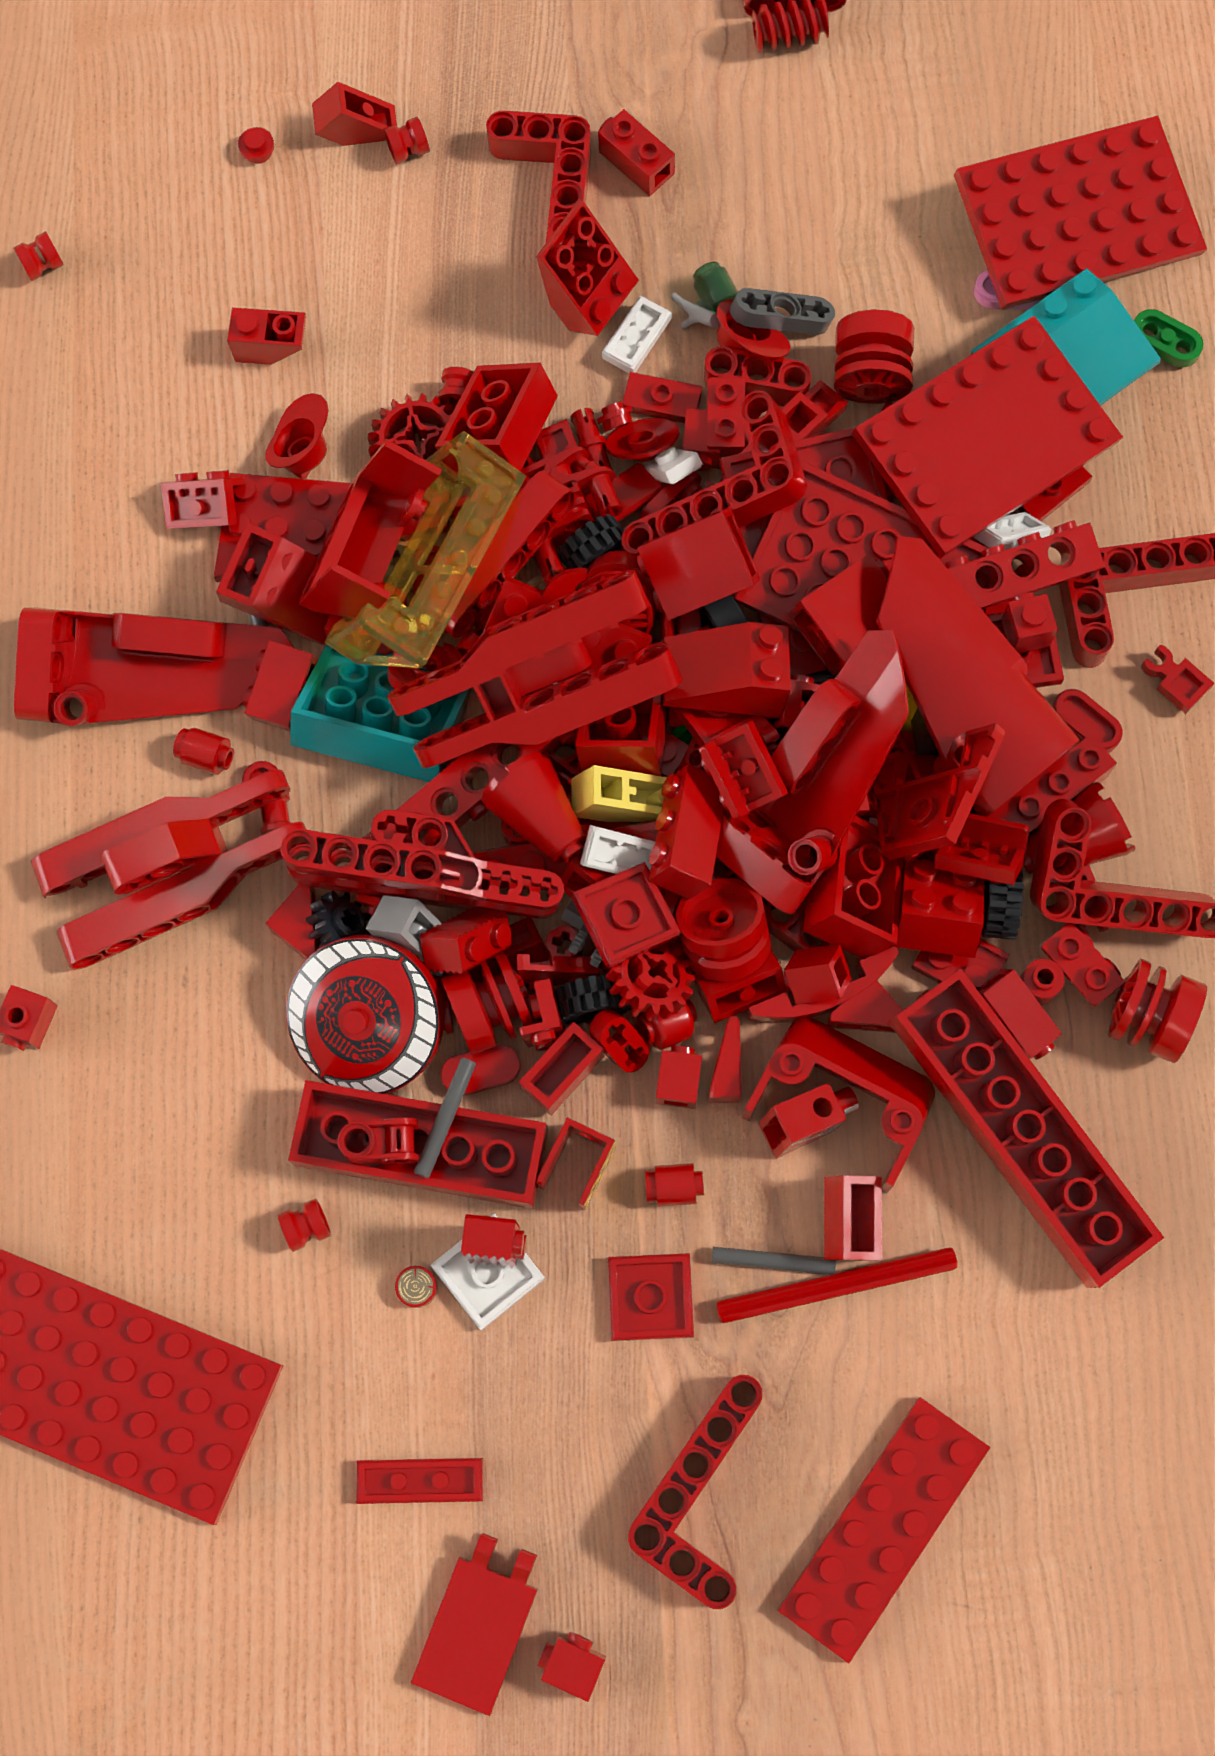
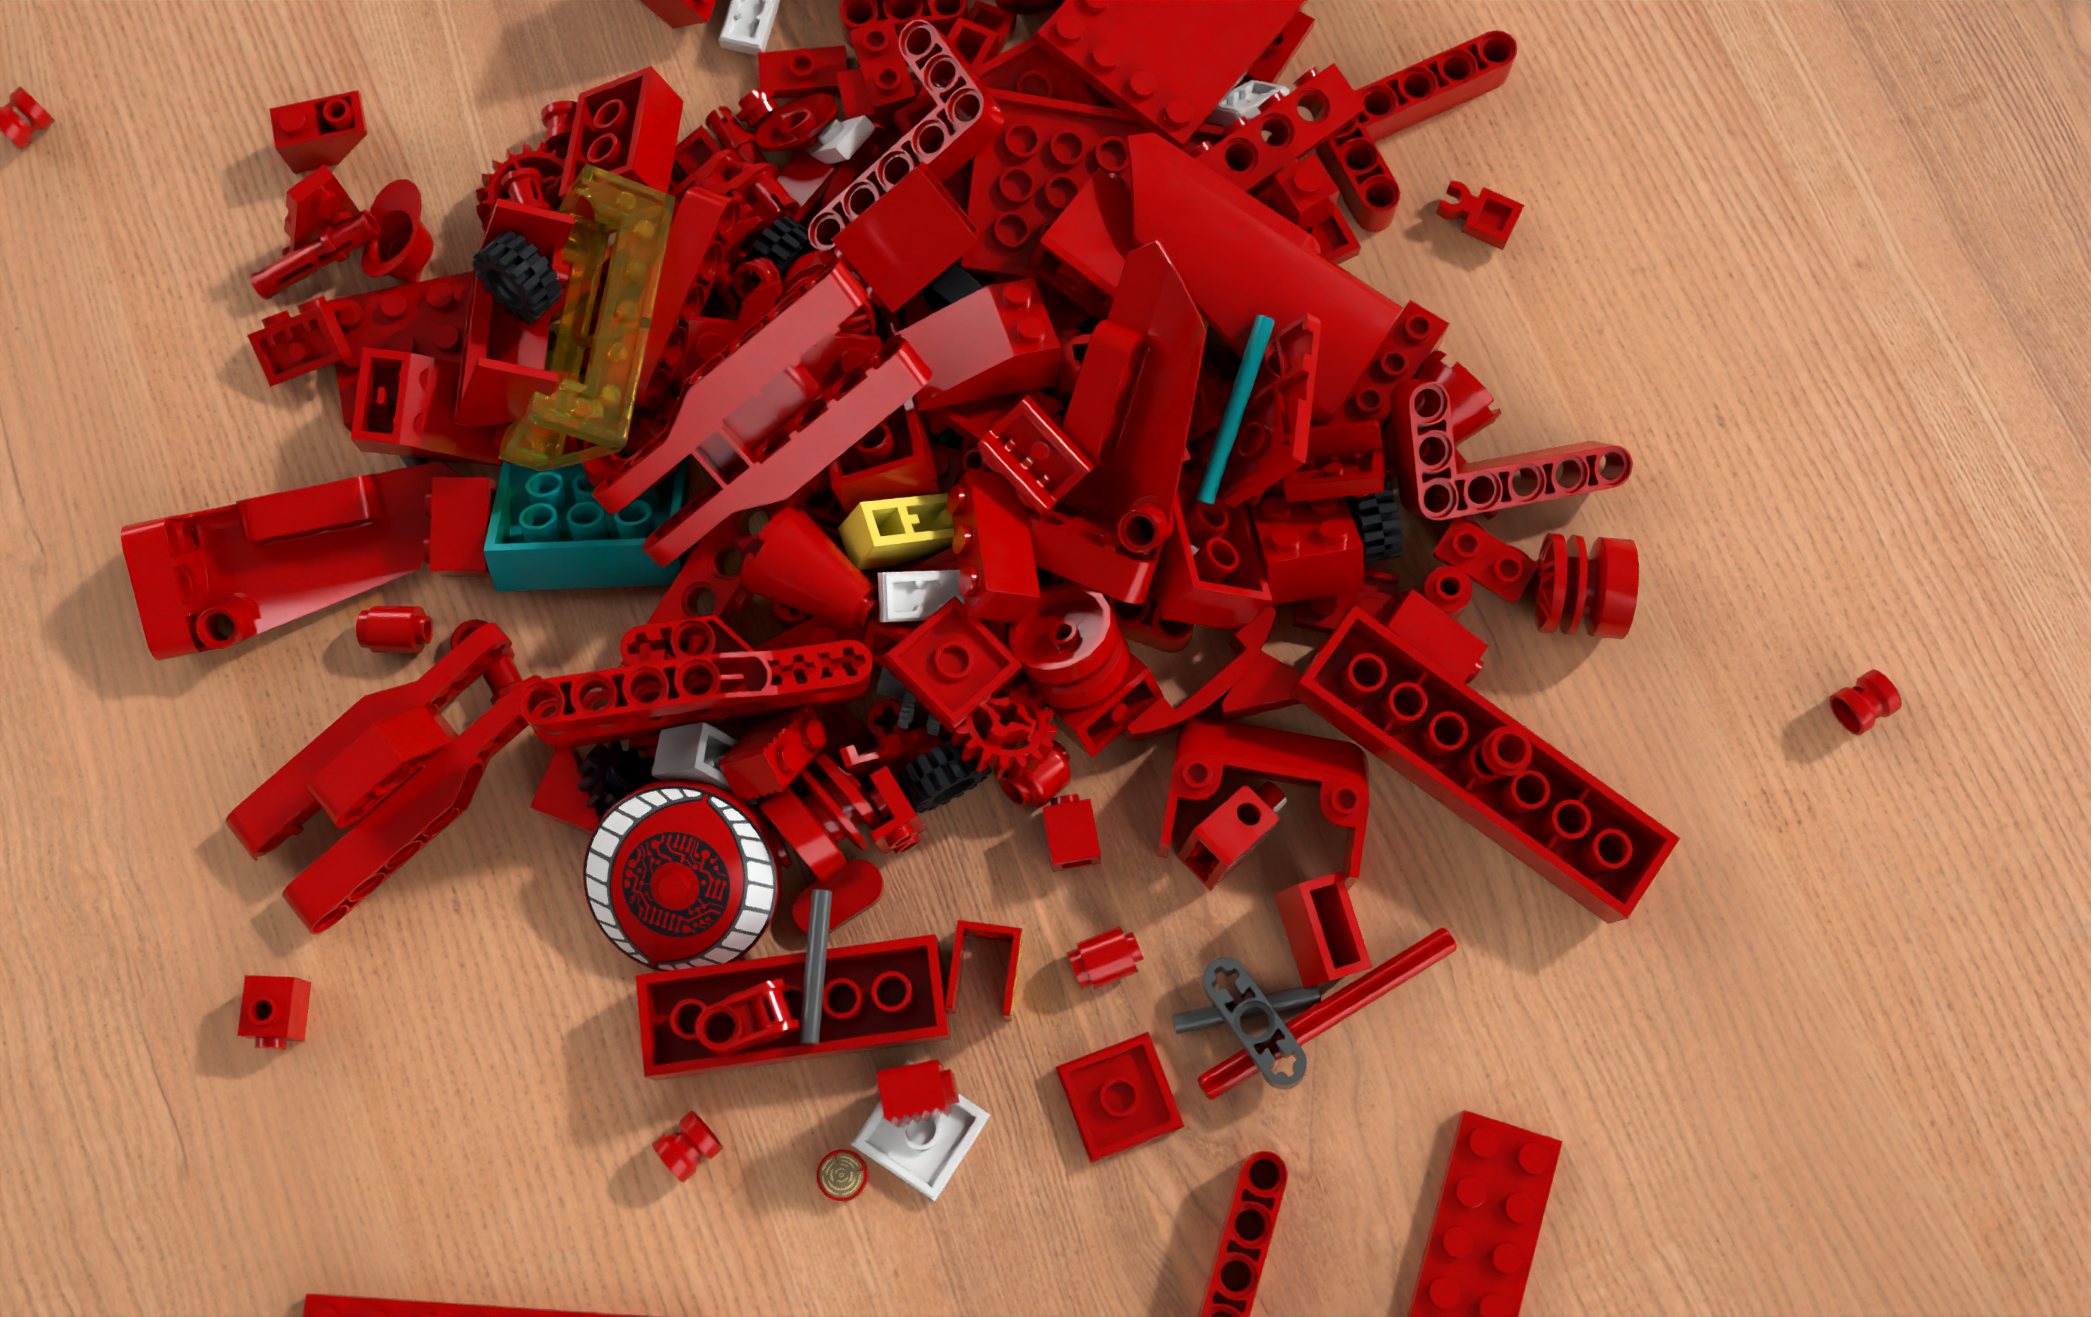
camera: 20 degrees left, 0 degrees up
(243, 403) = (314, 205): none -> red wing
(246, 431) = (331, 246): none -> red pin
(383, 503) = (517, 277): none -> black tyre
(410, 434) = (522, 191): none -> red bush
(562, 1068) = (933, 865): red piece -> none
(563, 552) = (747, 272): none -> red bush
(624, 1035) = (985, 820): red beam -> none
(726, 1080) = (1126, 813): red slope -> none
(794, 1299) = (1286, 1046): none -> dark grey beam
(817, 974) = (1192, 664): red brick -> none
(915, 782) = (1234, 409): none -> teal bar
(1056, 1120) = (1516, 741): none -> red plate
(1087, 718) = (1400, 284): red tile -> none

